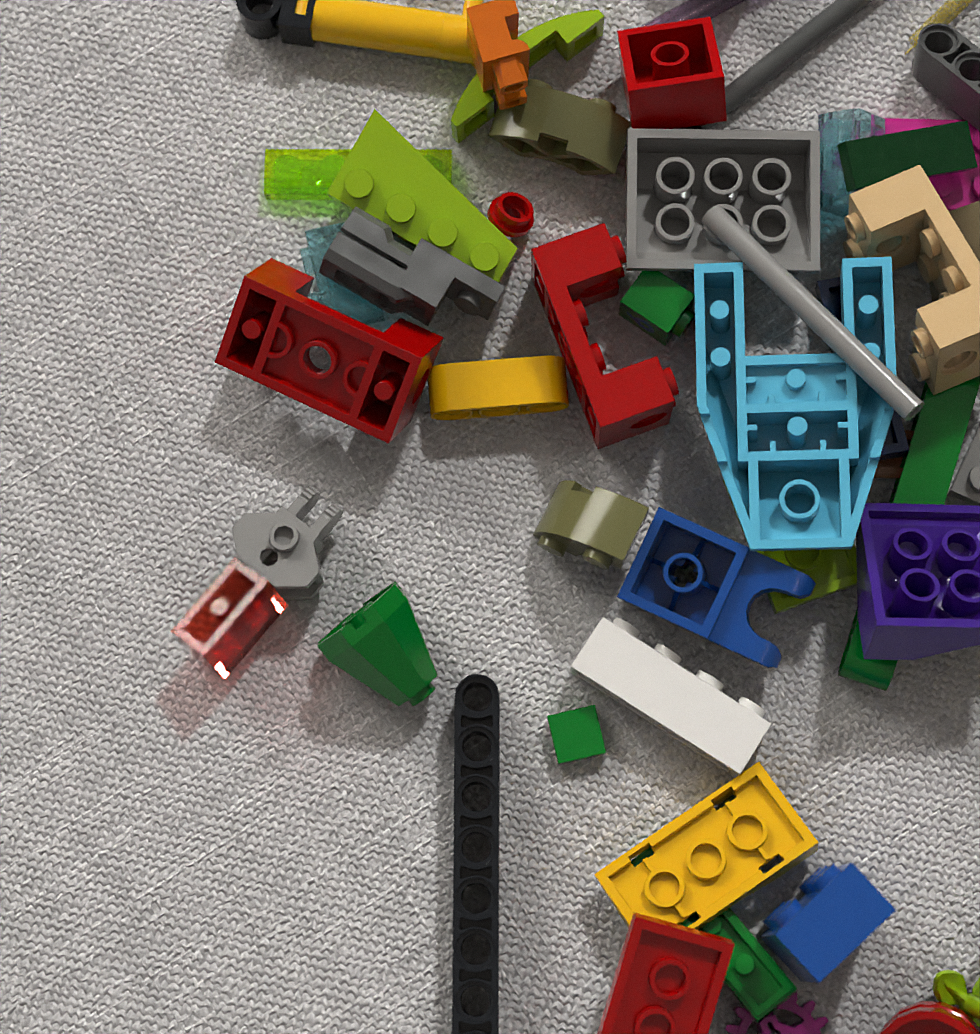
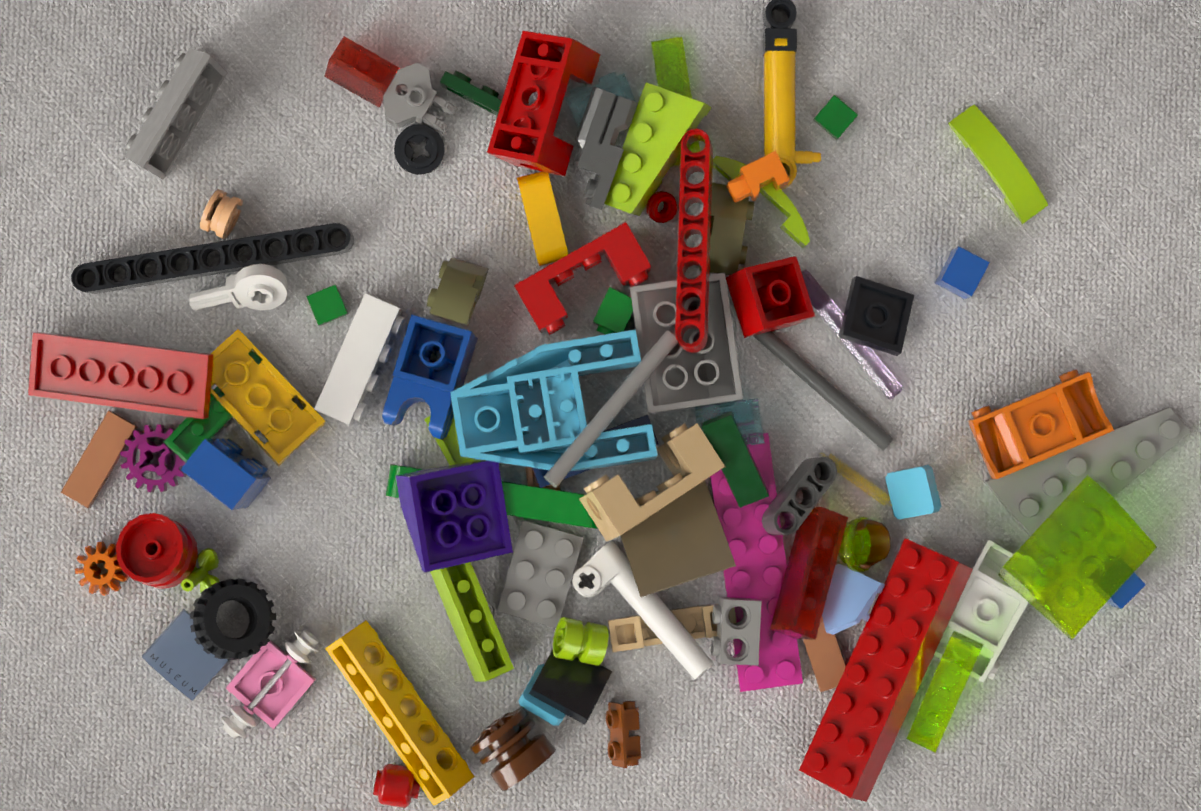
camera: 80 degrees right, 10 degrees up
(235, 918) = (176, 112): none -> light grey slope
(302, 446) = (460, 85): none -> dark green plate
(361, 533) = (416, 135): none -> black gear
(384, 648) = (359, 172): green cone -> none
(413, 869) = (221, 214): none -> light nougat wheel
(534, 840) = (252, 287): none -> white piece
(594, 172) = (688, 226): none -> red beam

